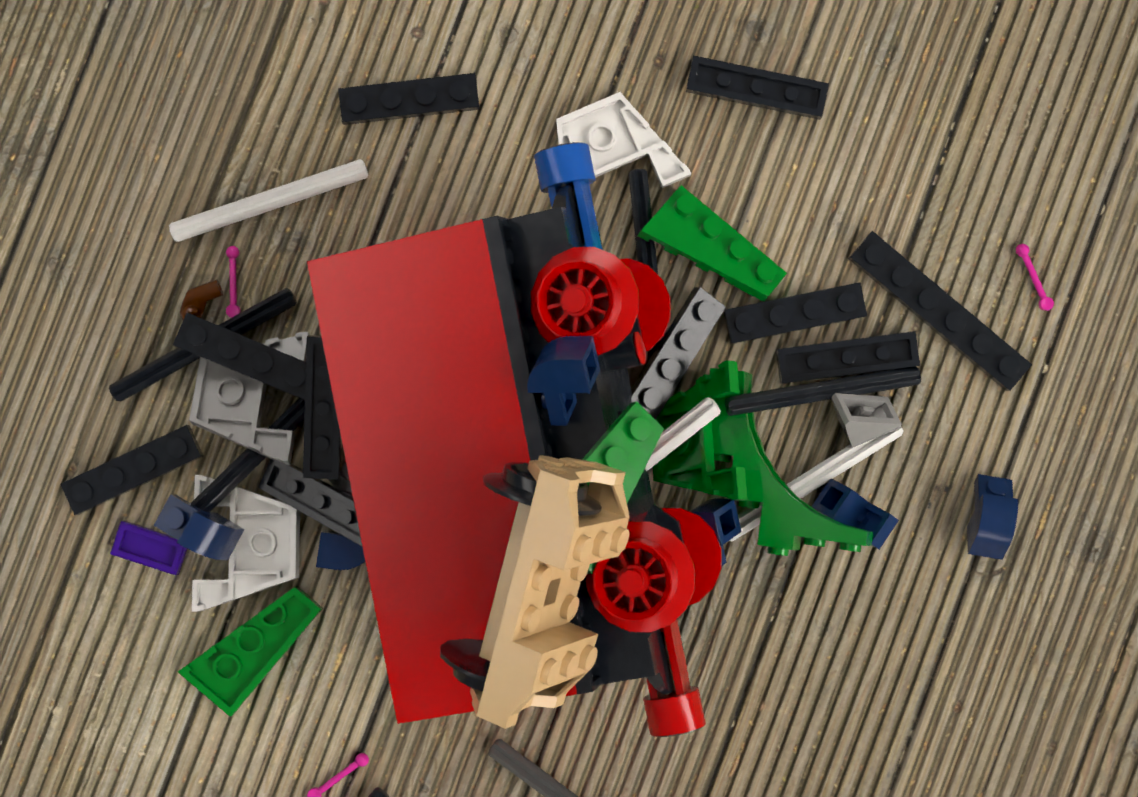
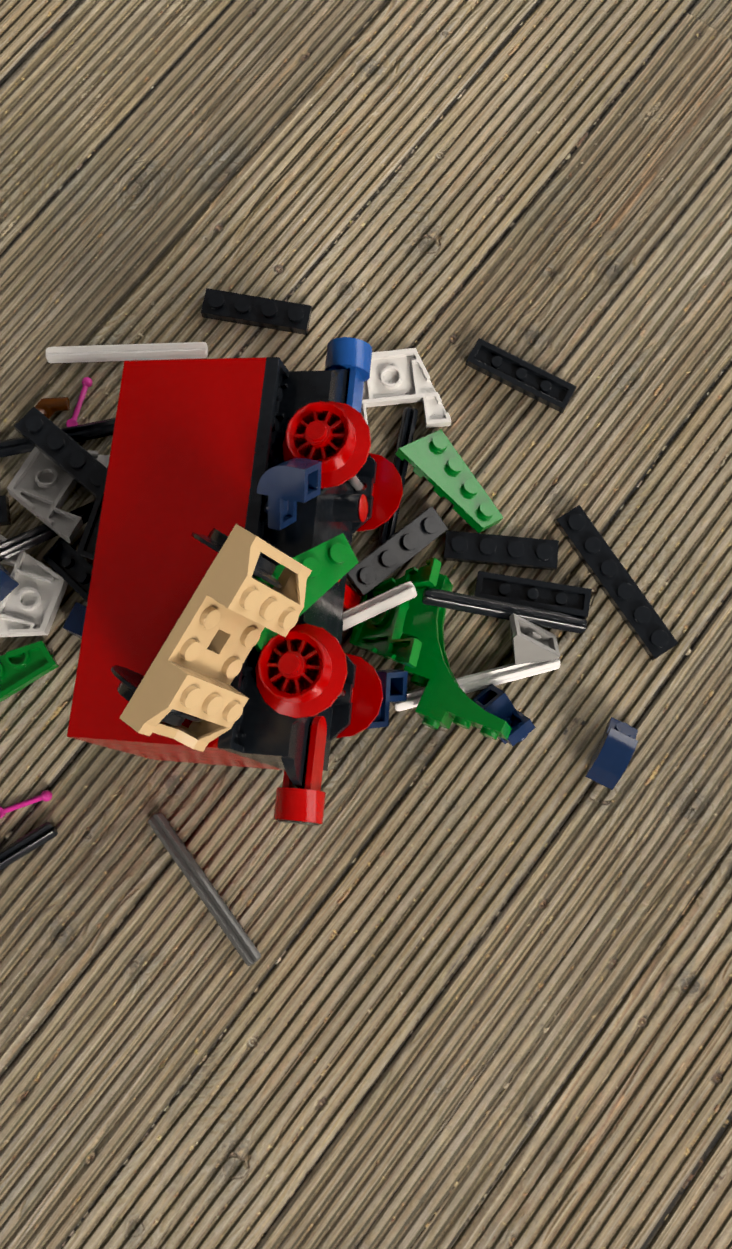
camera: 15 degrees right, 10 degrees down
(1045, 303) = (702, 600): dark pink hinge -> none

